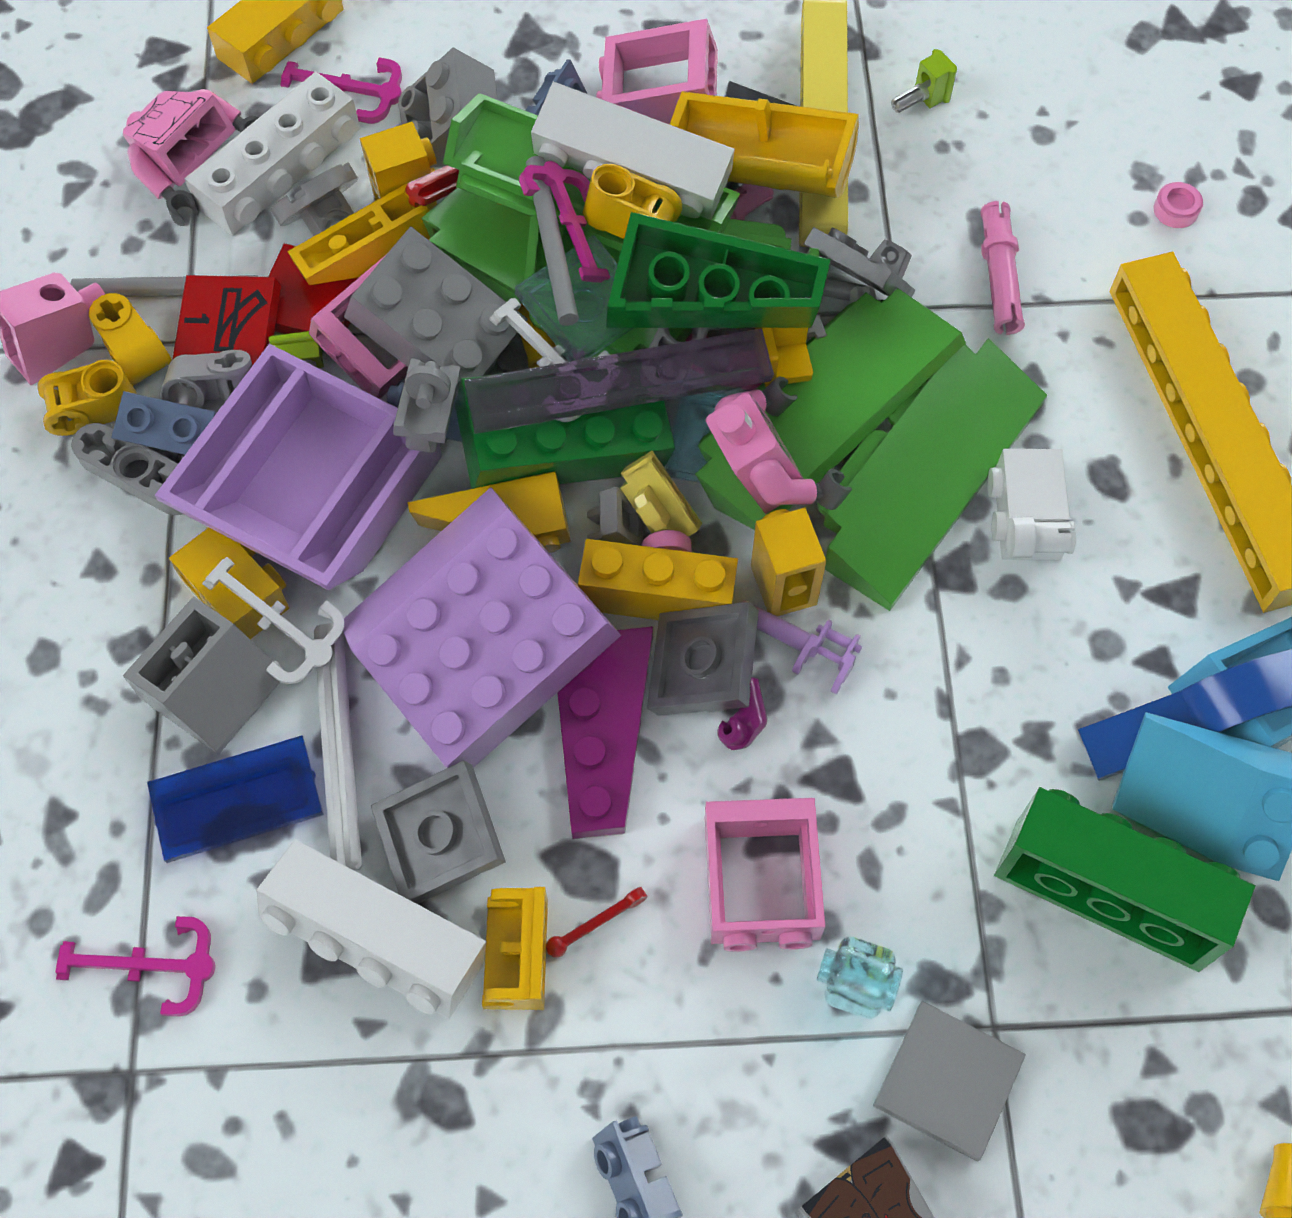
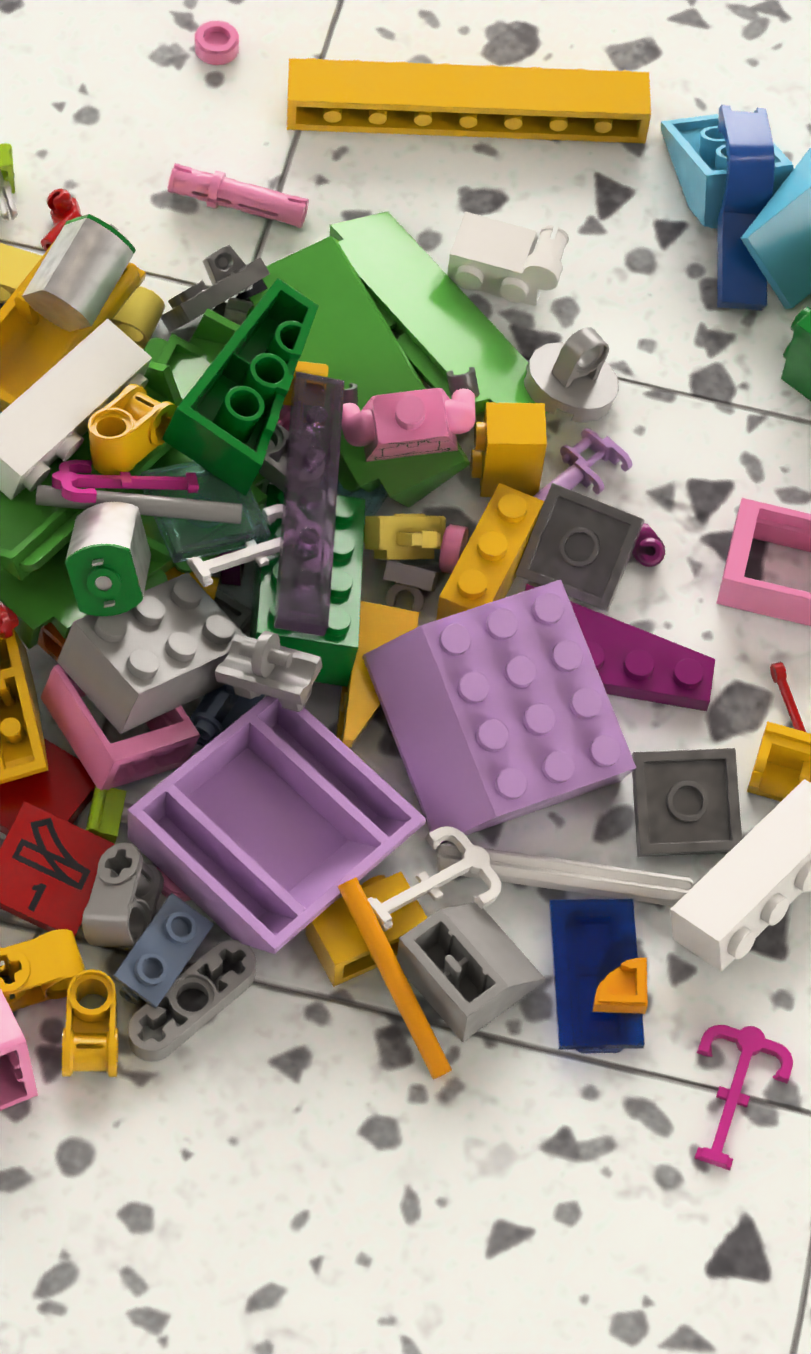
camera: 80 degrees left, 5 degrees down
(169, 608) = (394, 978): none -> light orange bar
(213, 824) = (624, 989): none -> light orange tile
(479, 229) = (108, 559): none -> piece
(792, 124) = (79, 272): none -> flat silver piece
(909, 150) = (62, 208): none -> red arm
(909, 606) = (573, 376): none -> light grey tile

